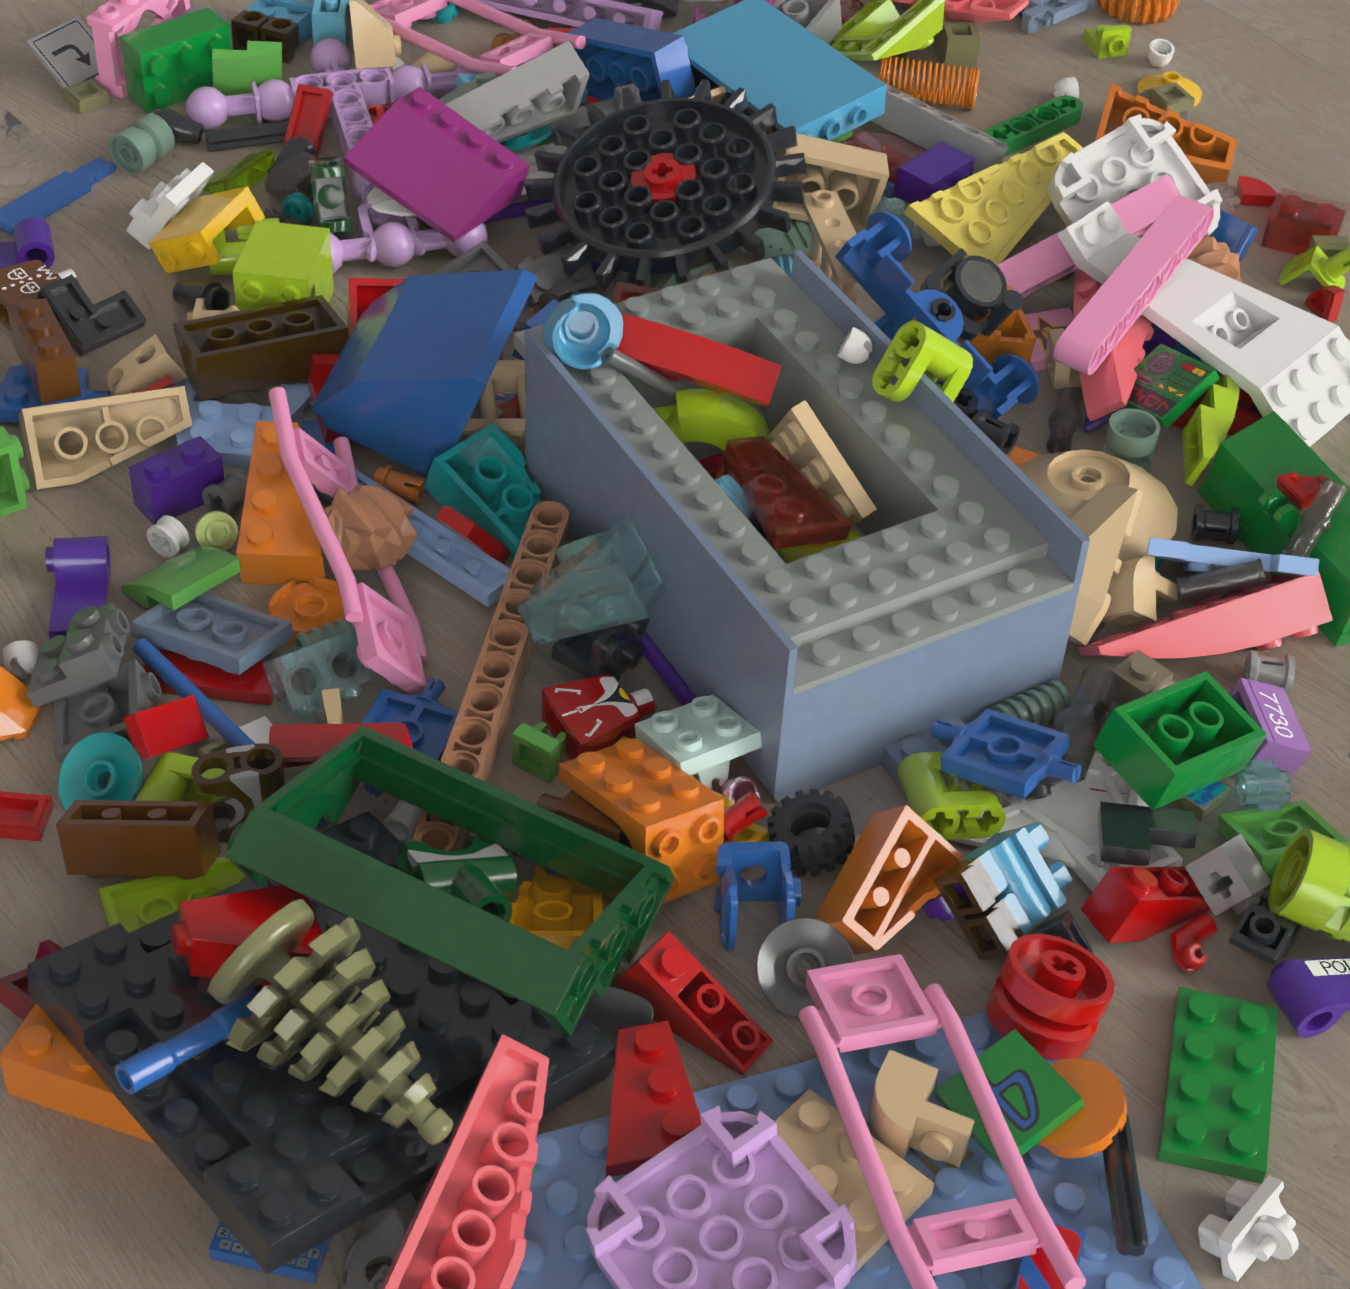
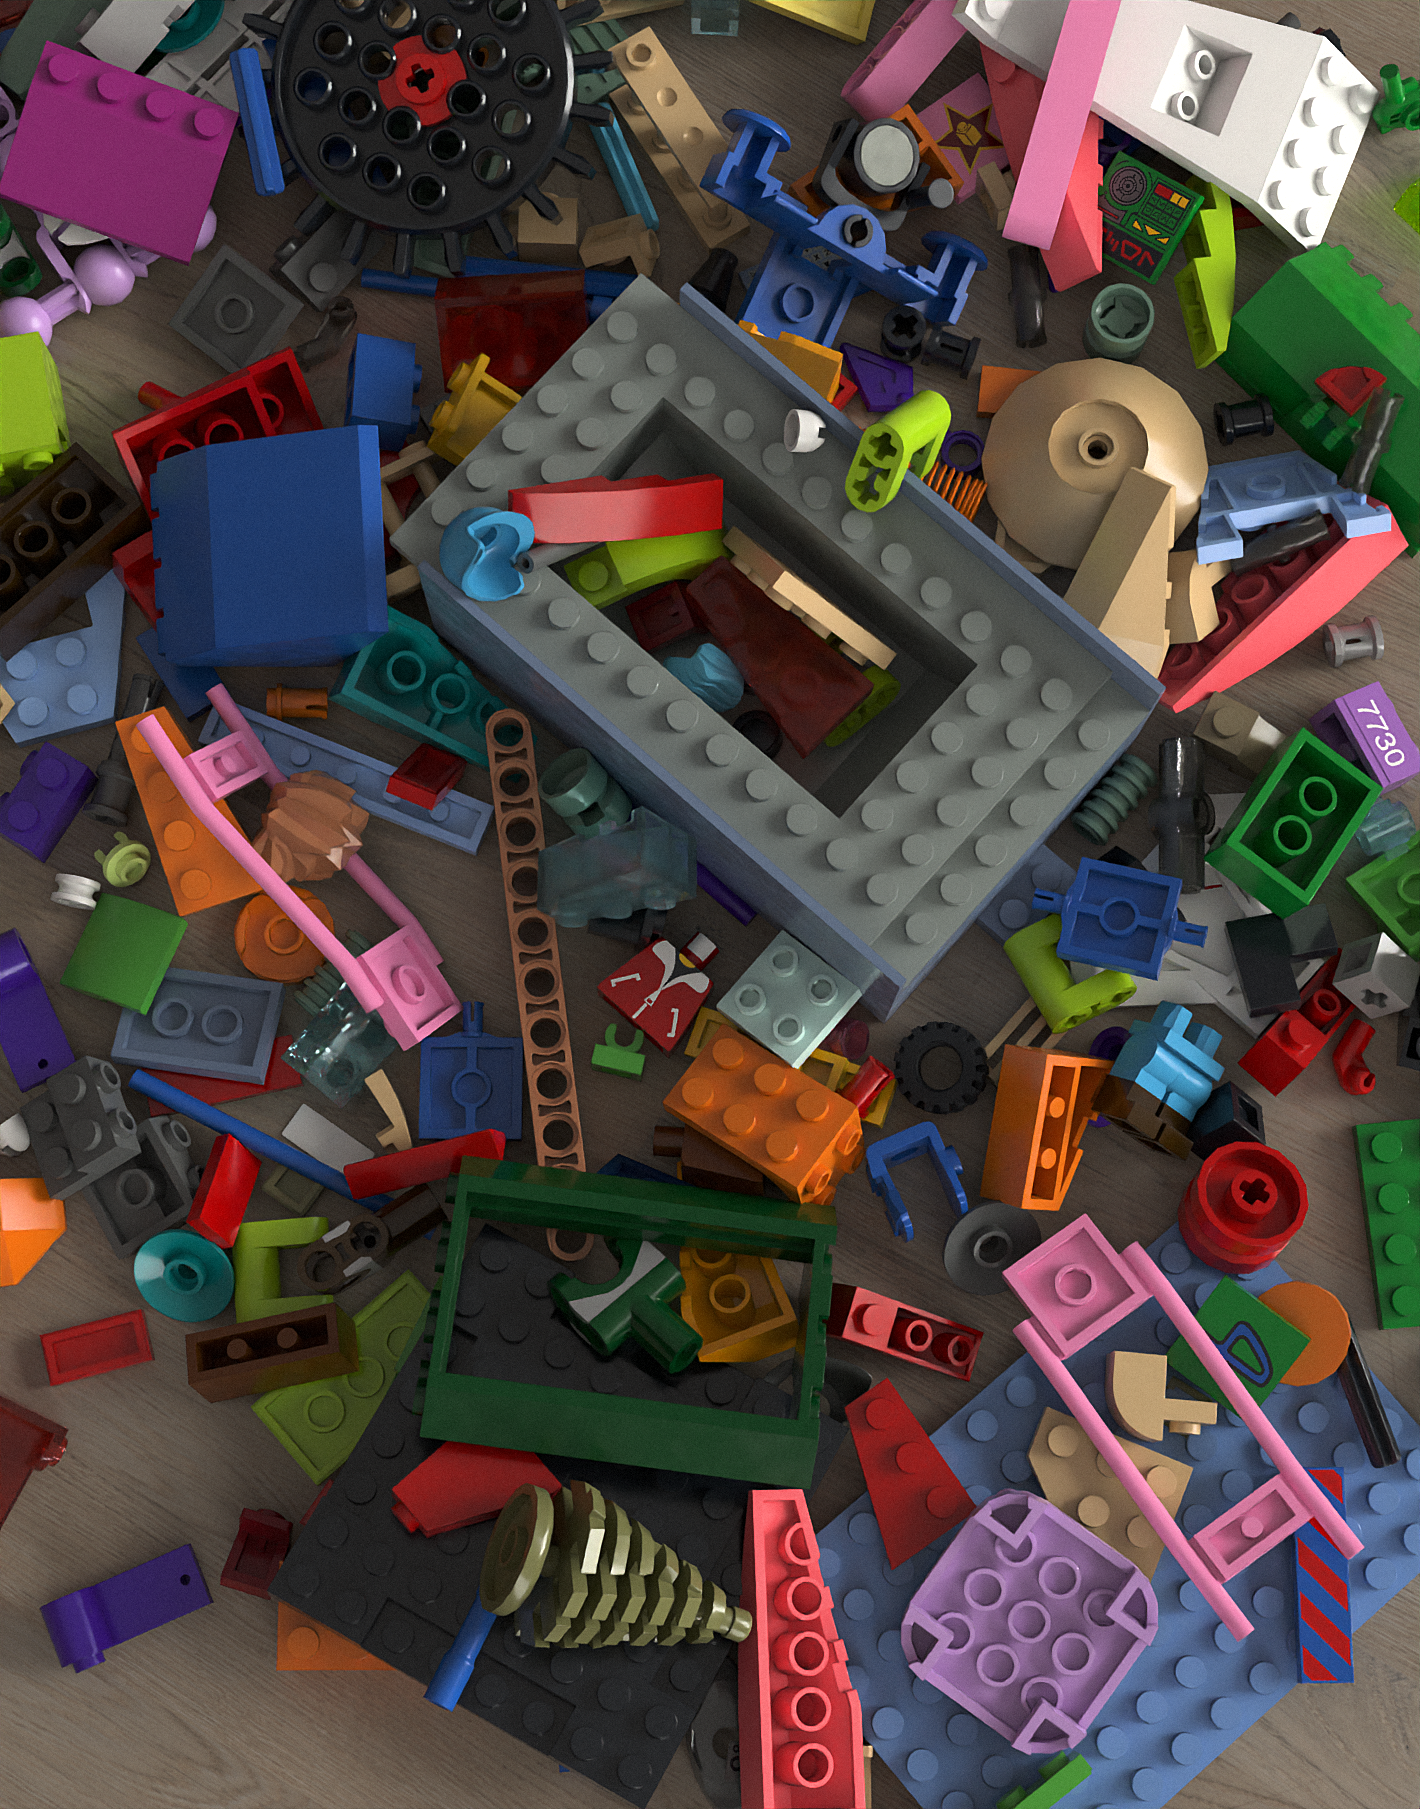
camera: 20 degrees left, 35 degrees up
(538, 173) = (256, 122): none -> blue axle

